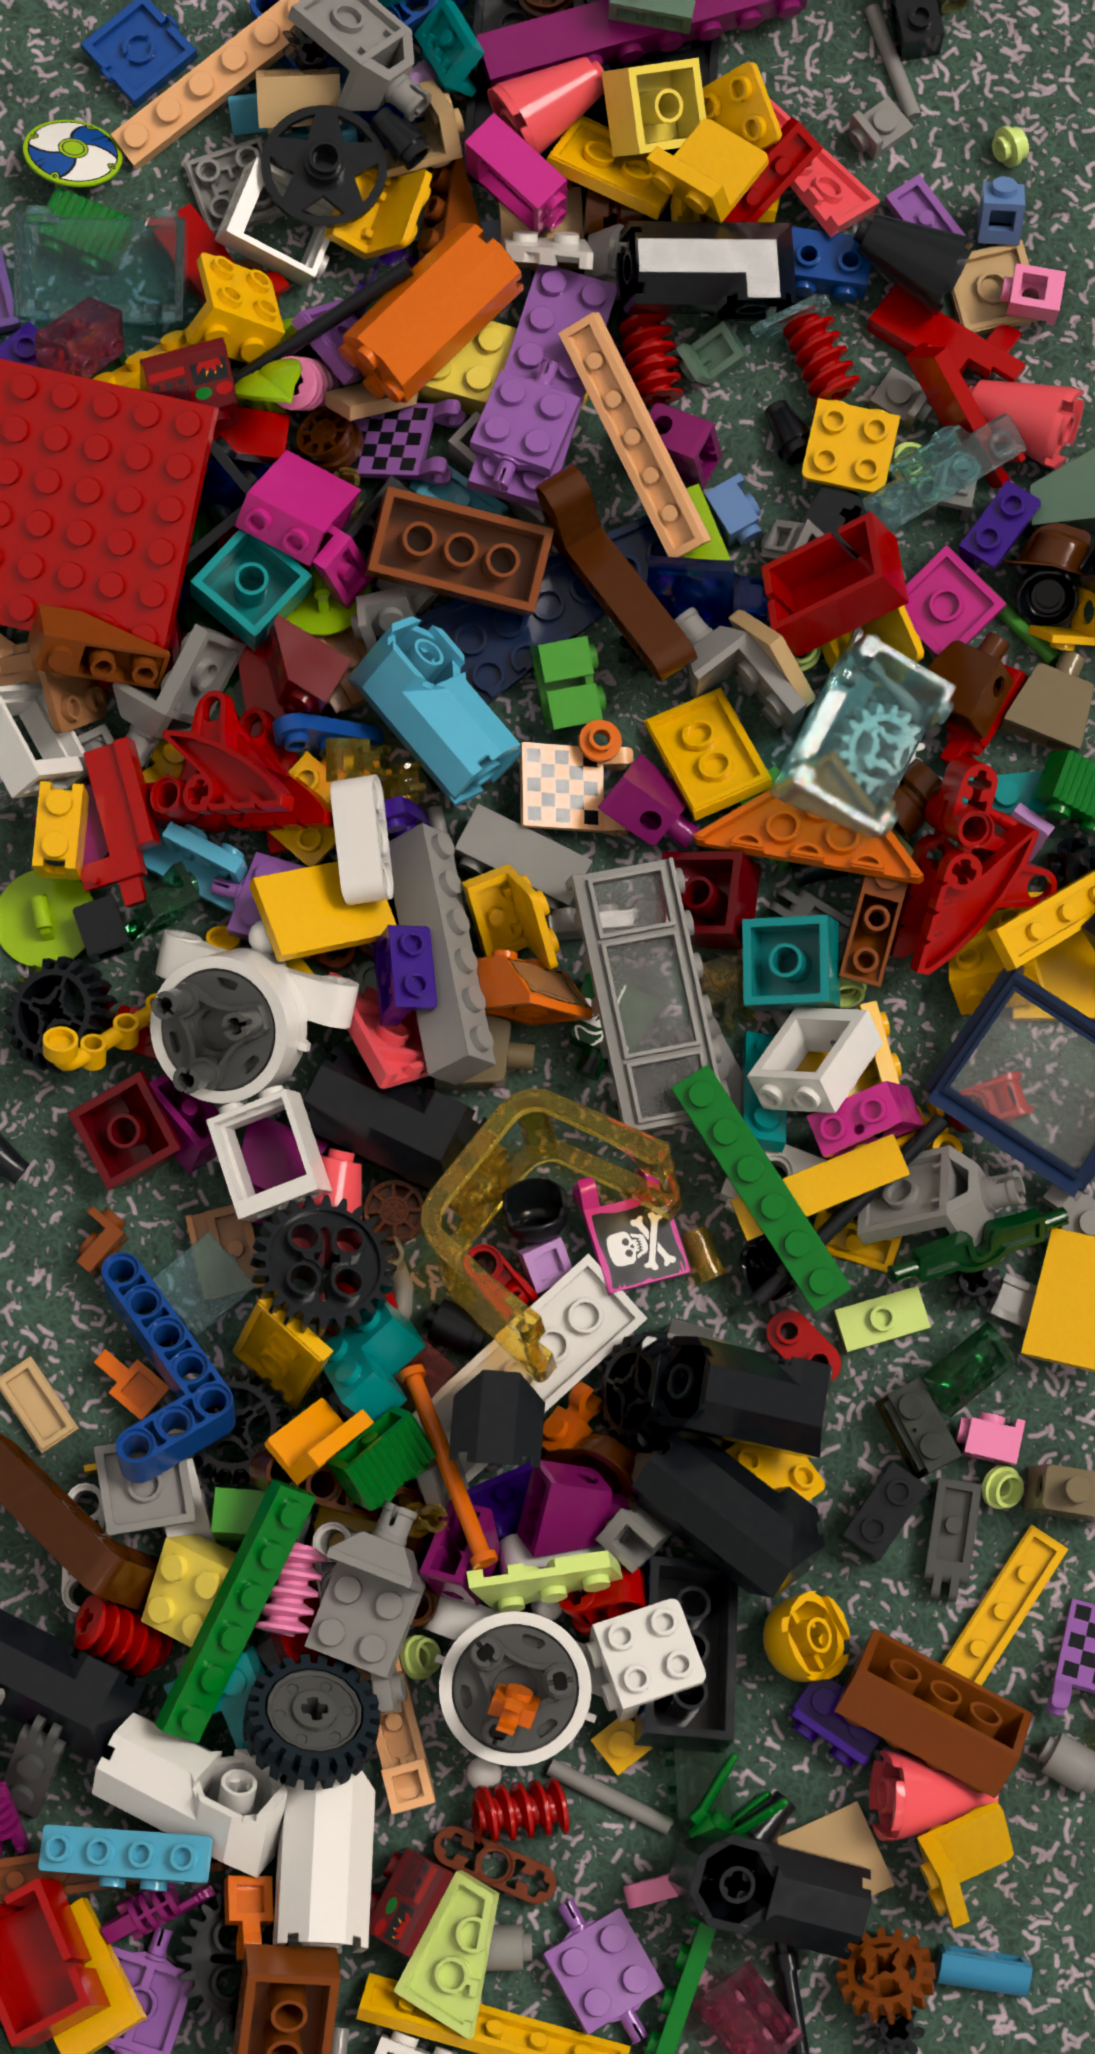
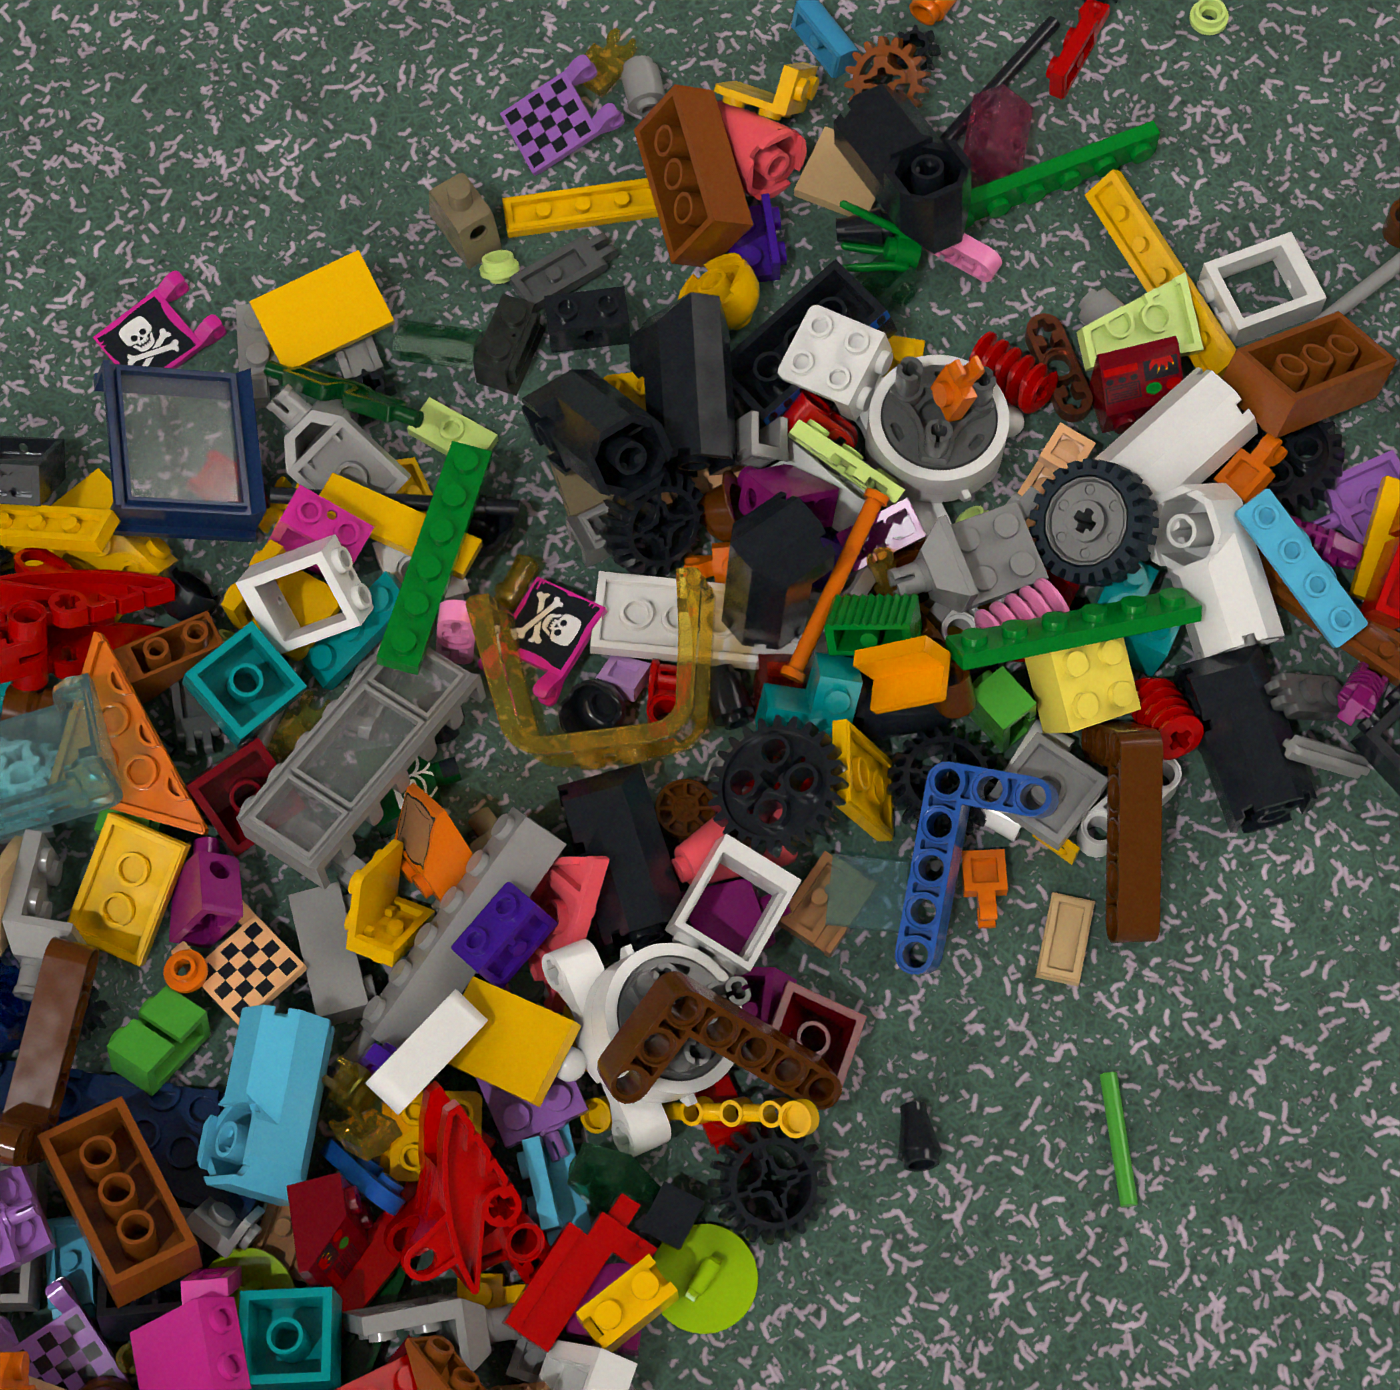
camera: 130 degrees left, 10 degrees down
(99, 1247) = (913, 992): dark orange bracket -> none
(171, 1035) = (725, 1036): none -> reddish brown beam
(602, 1971) = (1056, 248): medium lavender plate -> none
(610, 1797) = (936, 319): light grey bar -> none
(688, 1154) = (454, 632): none -> bright pink beam
(805, 1345) = (521, 464): red plate -> none
(917, 994) = (191, 595): none -> black hair
(990, 1439) = (470, 295): bright pink brick -> none

